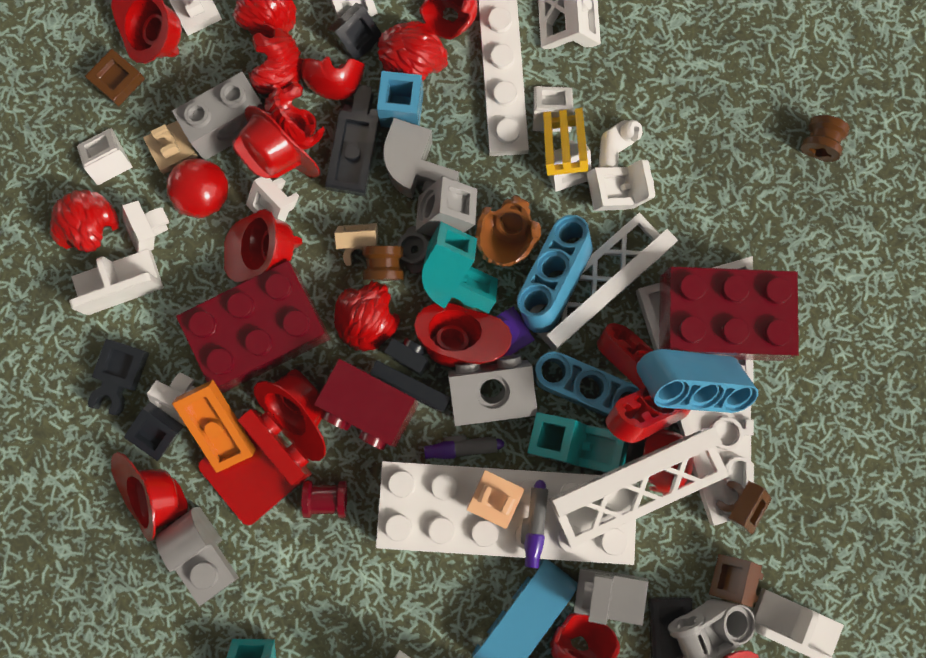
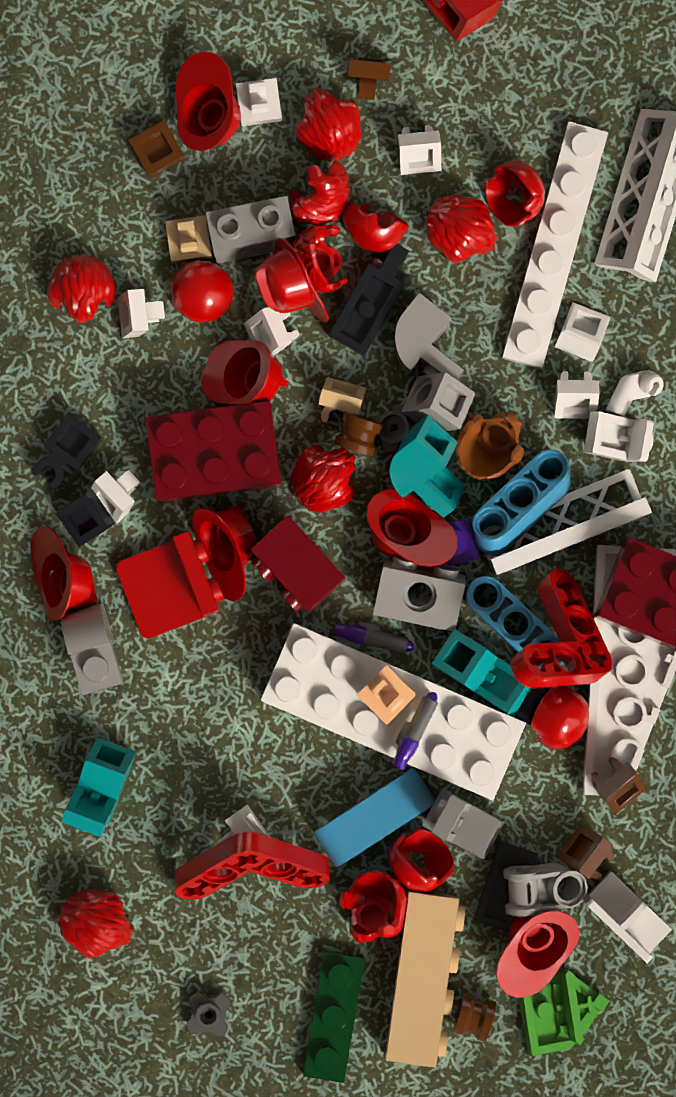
camera: 25 degrees right, 5 degrees up
(103, 156) = (119, 225): white slope -> none
(115, 282) = (93, 358): white panel -> none
(214, 426) = (147, 534): orange plate -> none
(324, 499) = (225, 639): dark red bush -> none
(355, 31) = (412, 186): black plate -> none
(399, 98) = (432, 275): dark azure brick -> none
(408, 355) = (352, 530): black plate -> none
(411, 387) = (343, 562): black tile -> none
(563, 123) = (585, 352): yellow tile -> none
(633, 472) = (519, 715): white fence -> none
(696, 381) = (613, 653): dark azure beam -> none

